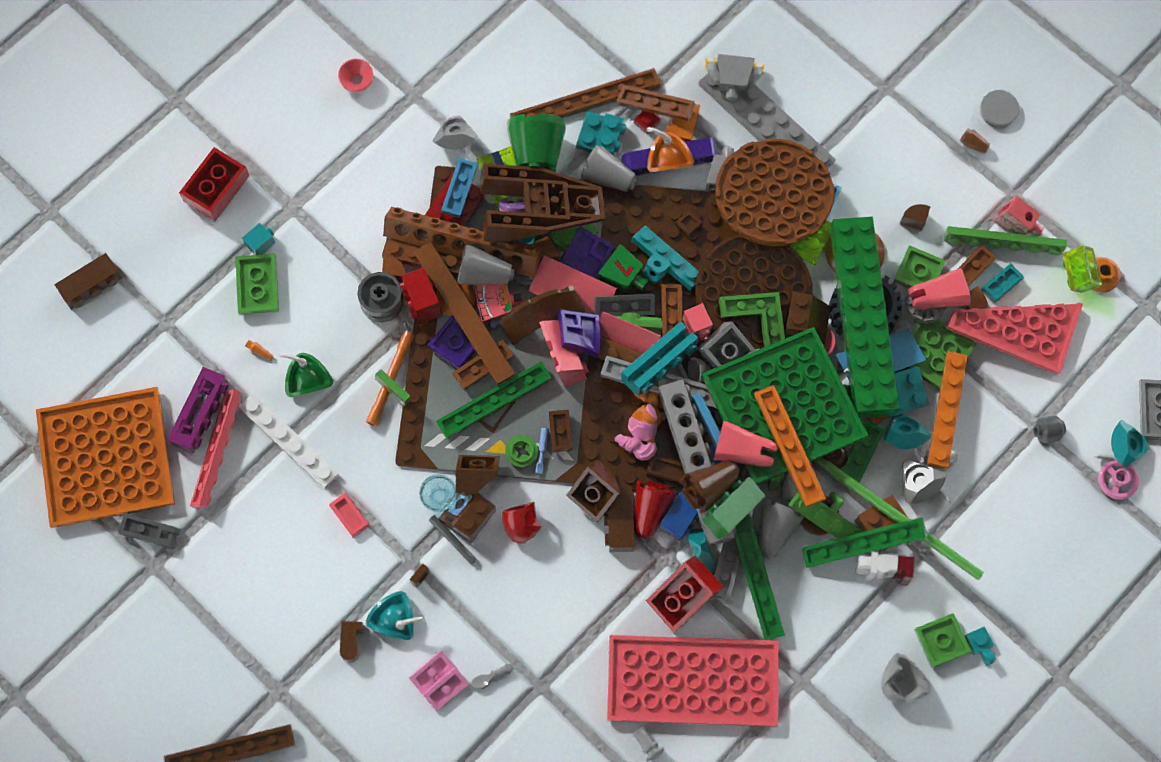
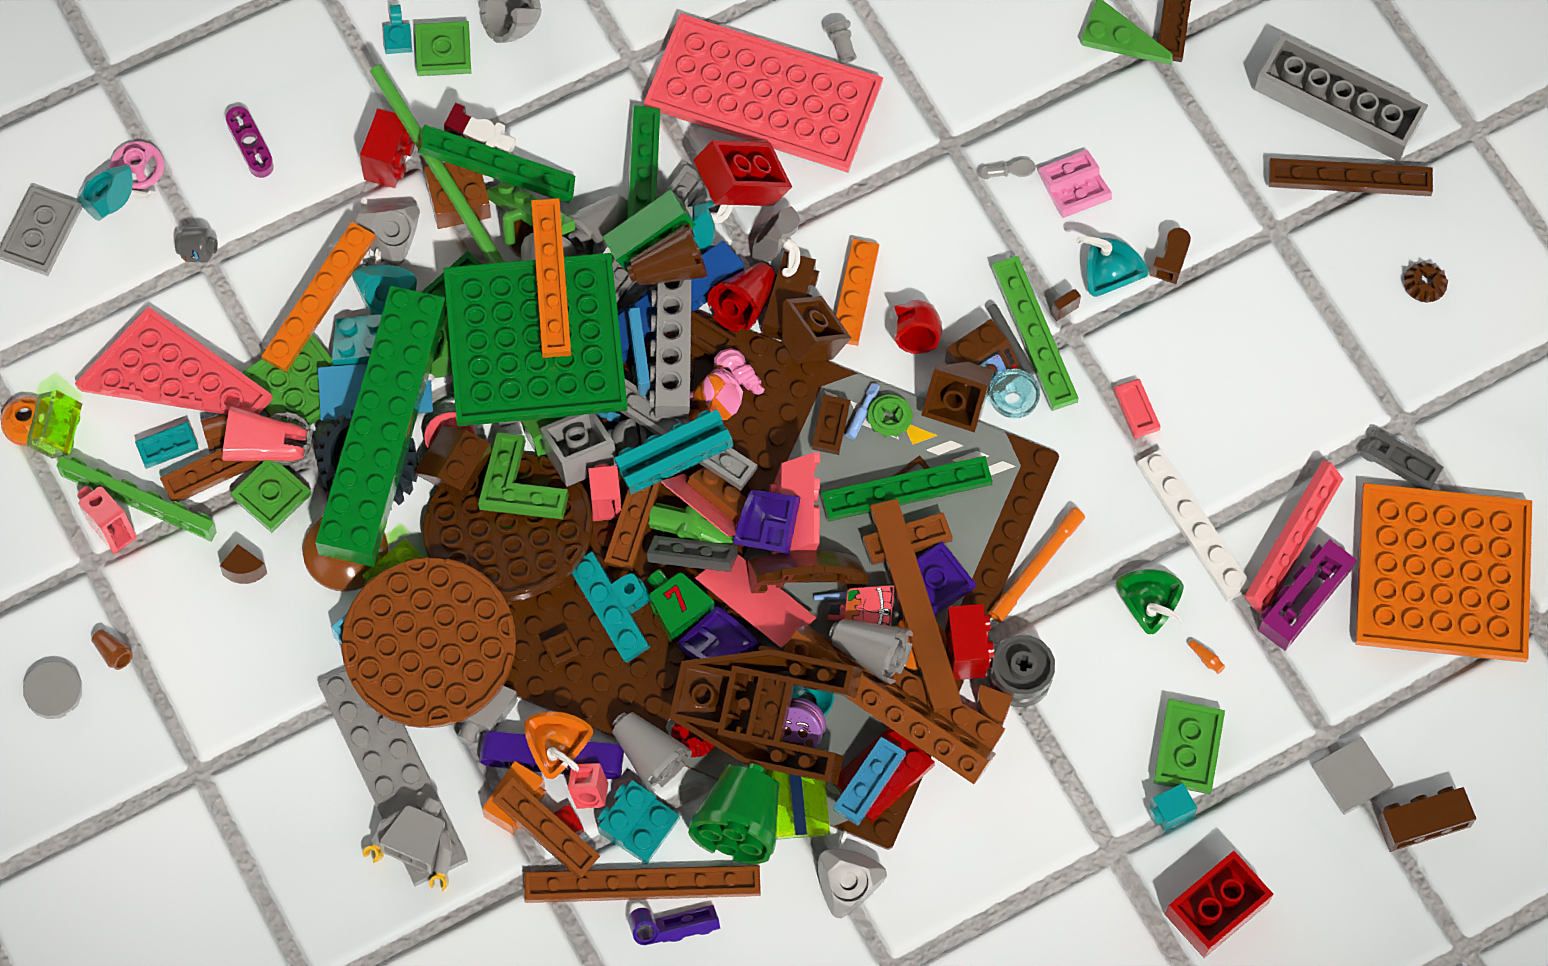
camera: 165 degrees left, 5 degrees down
(143, 299) = (1352, 775): none -> light grey tile
(166, 681) = (1424, 292): none -> reddish brown gear
(392, 387) = (1038, 538): bright green tile -> none
(437, 548) = (1035, 333): none -> bright green plate
(558, 75) = (672, 927): none -> dark purple plate
(575, 543) = (857, 287): none -> orange plate
(638, 139) = (588, 786): none -> coral brick
(643, 556) = (775, 236): none -> light grey hat
(743, 447) = (611, 293): coral piece -> none
(951, 531) = (386, 150): none -> red brick
(1057, 521) = (249, 152): none -> magenta beam

